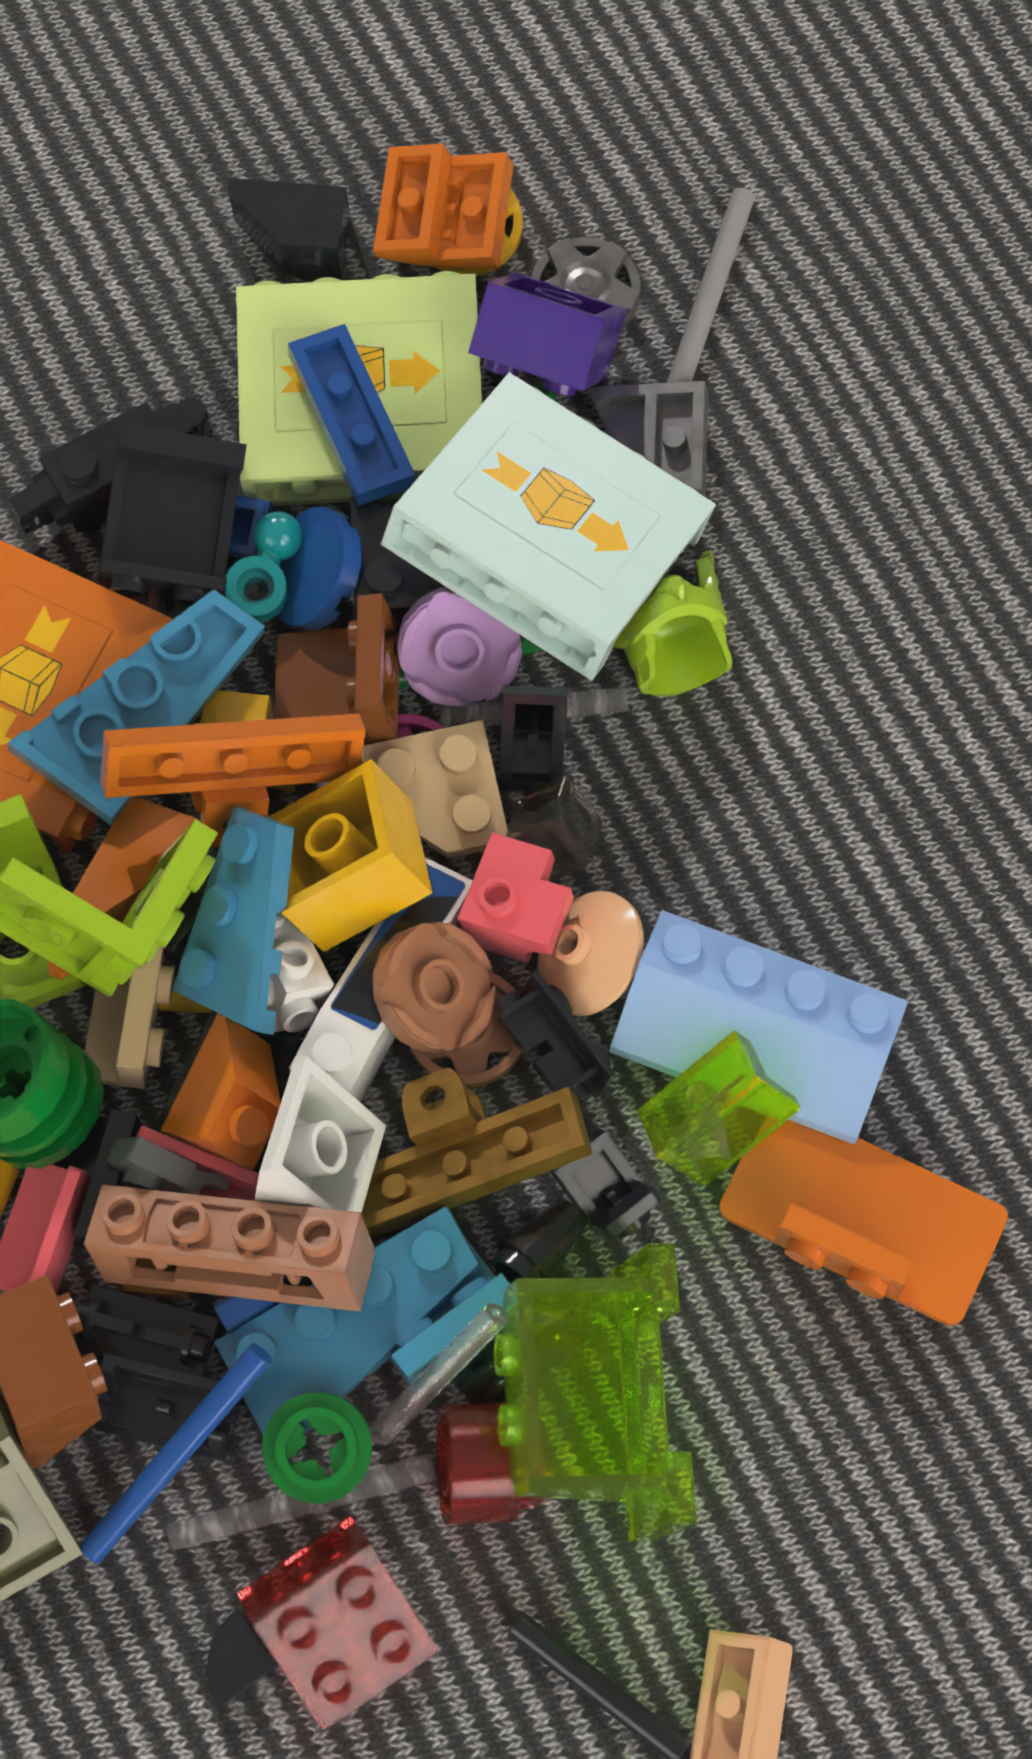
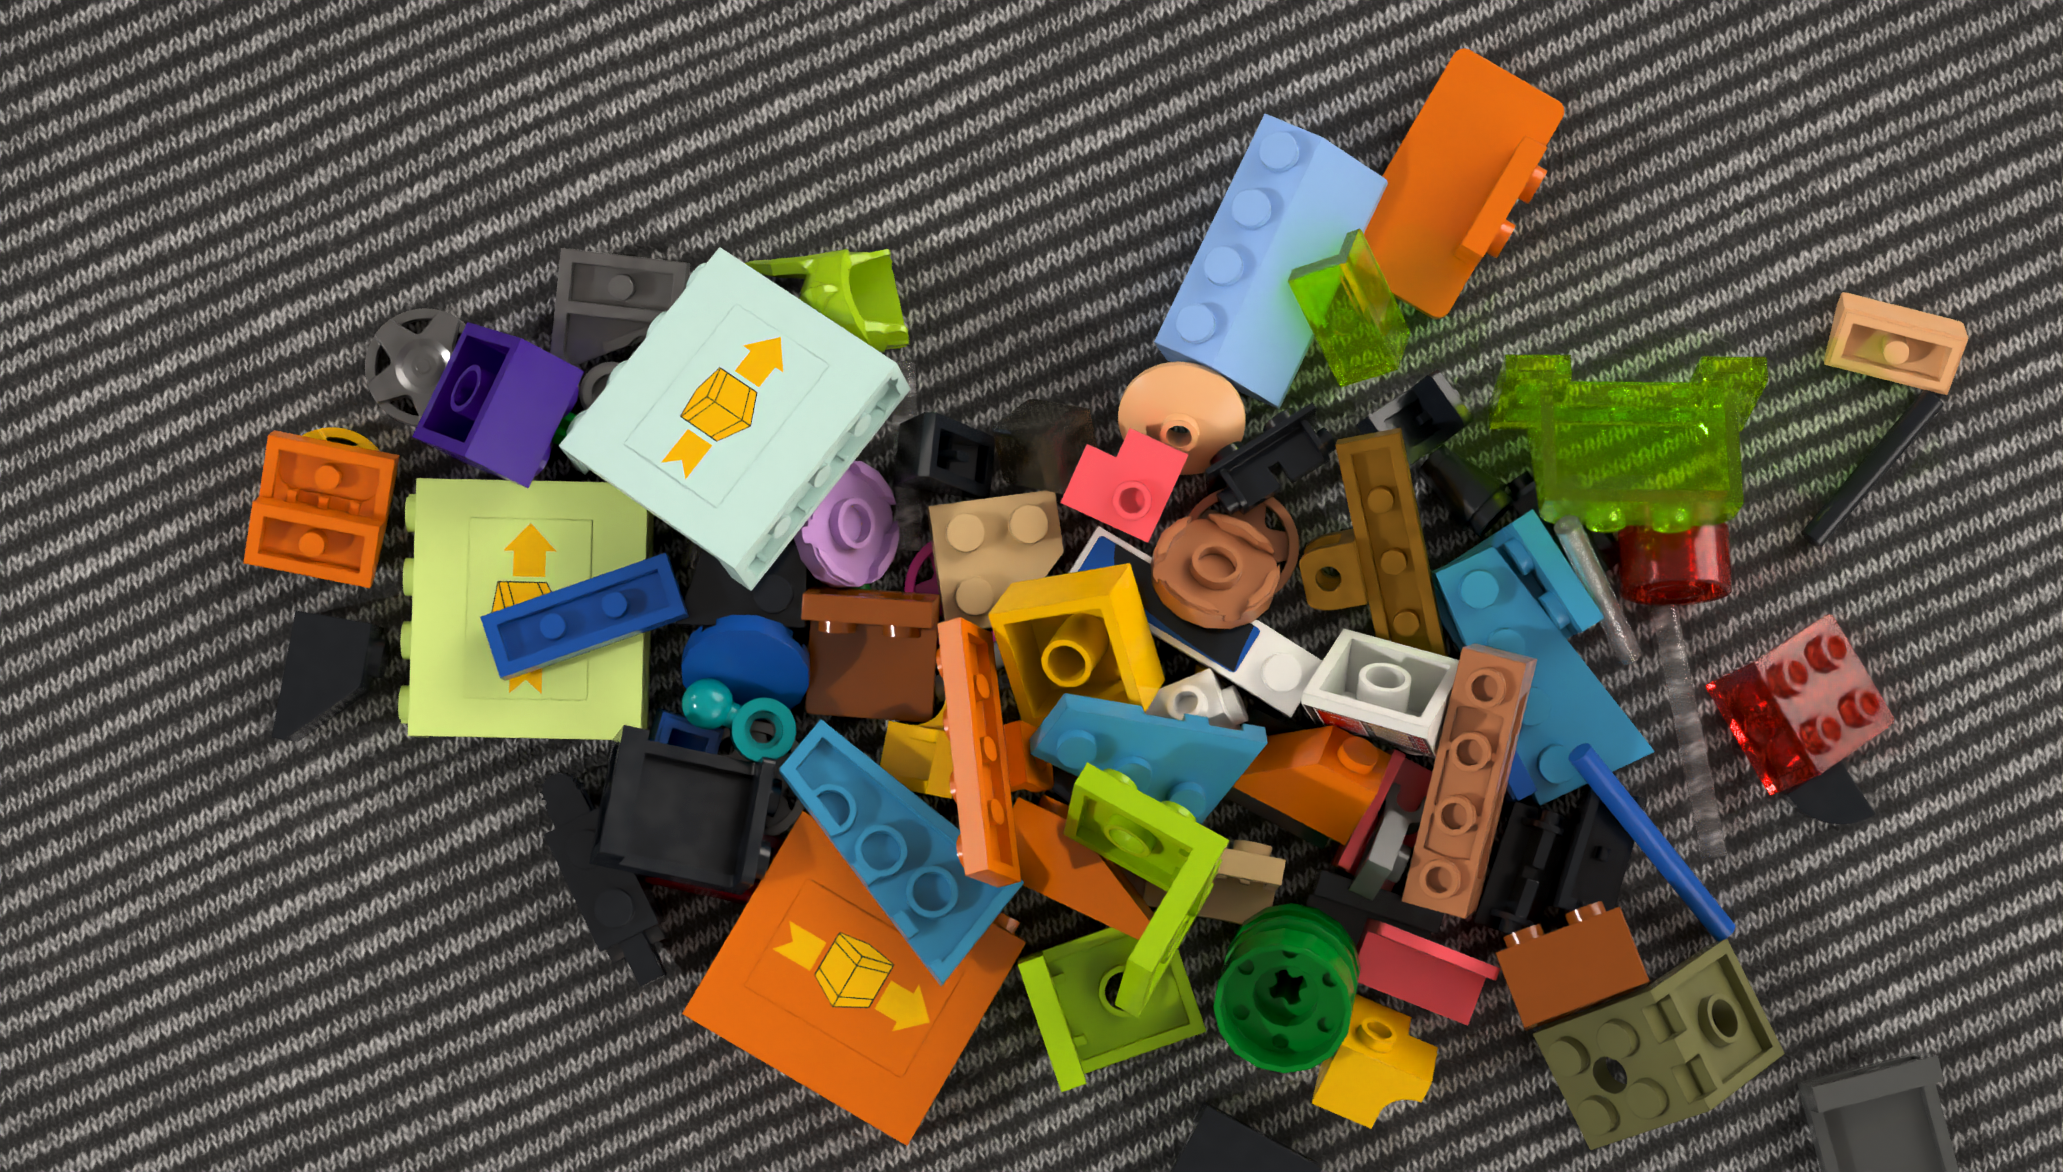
camera: 90 degrees left, 15 degrees up
(307, 1479) = (1677, 722): green gear -> none
(712, 286) = (440, 235): light grey bar -> none

